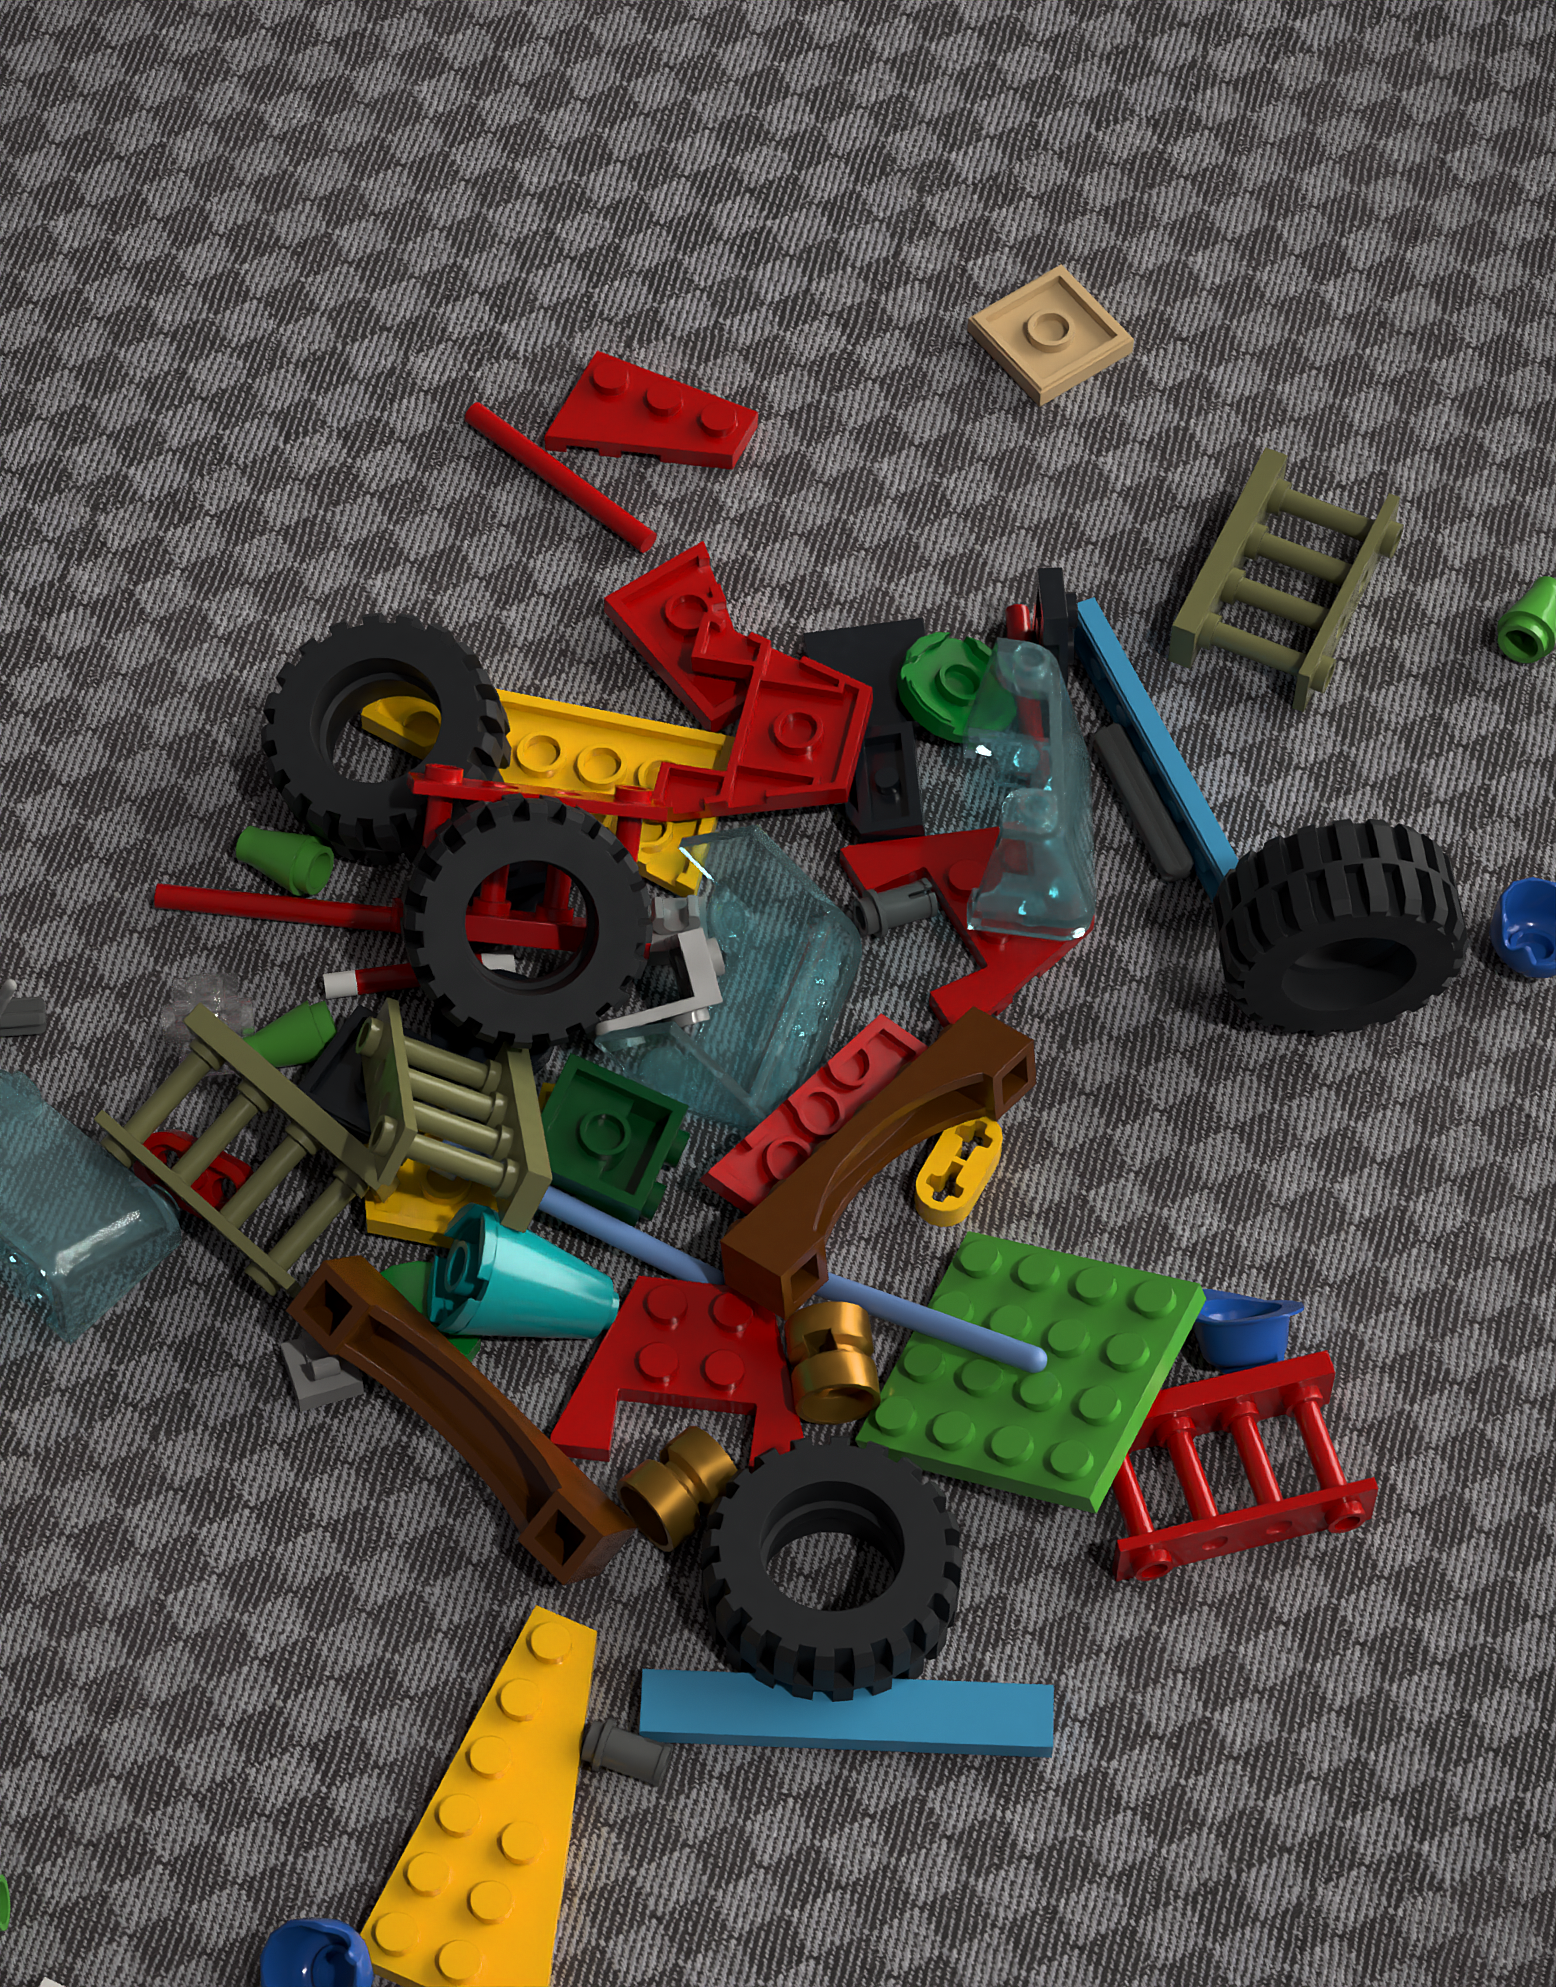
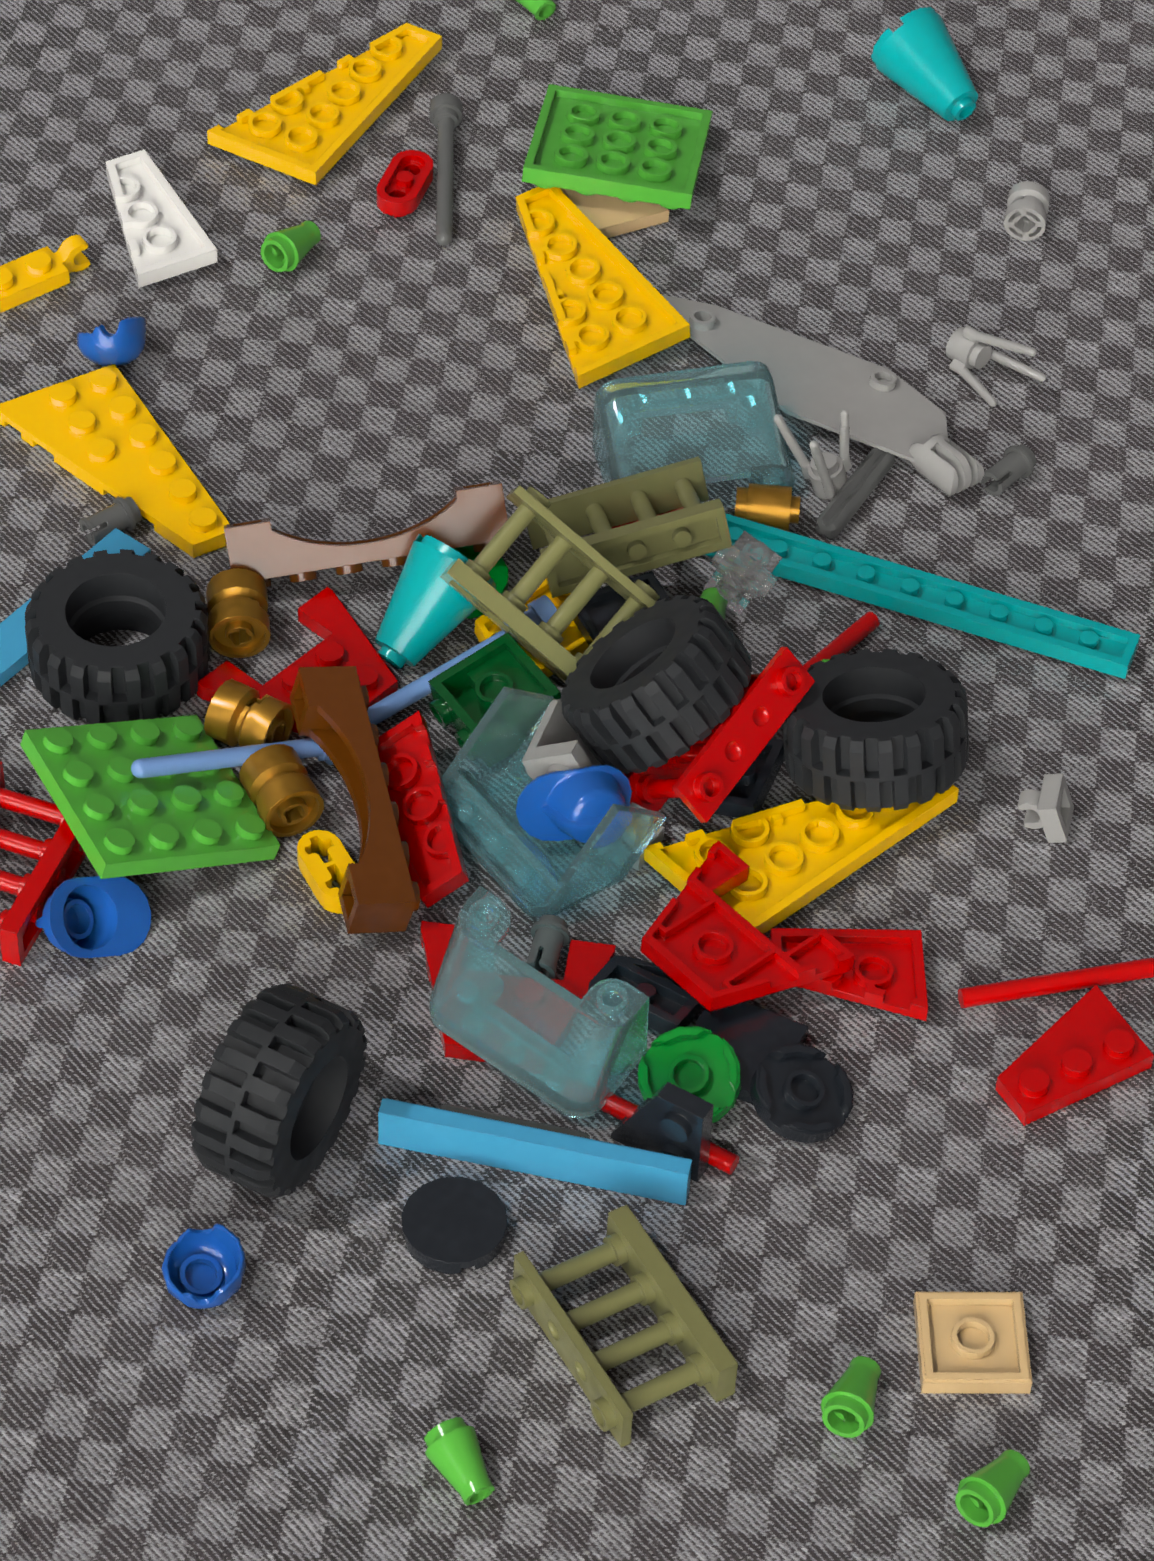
camera: 125 degrees right, 10 degrees down
(66, 1075) = (768, 505): none -> pearl gold brick
(90, 864) = (944, 600): none -> teal plate
(335, 579) = (1049, 808): none -> light grey tile
(729, 912) = (571, 802): none -> blue piece
(892, 593) = (801, 1093): none -> black tile
(909, 1254) = (281, 790): none -> pearl gold wheel
(1198, 236) = (989, 1492): none -> bright green cone
(1198, 377) = (851, 1401): none -> bright green cone
(1288, 783) = (454, 1224): none -> black tile

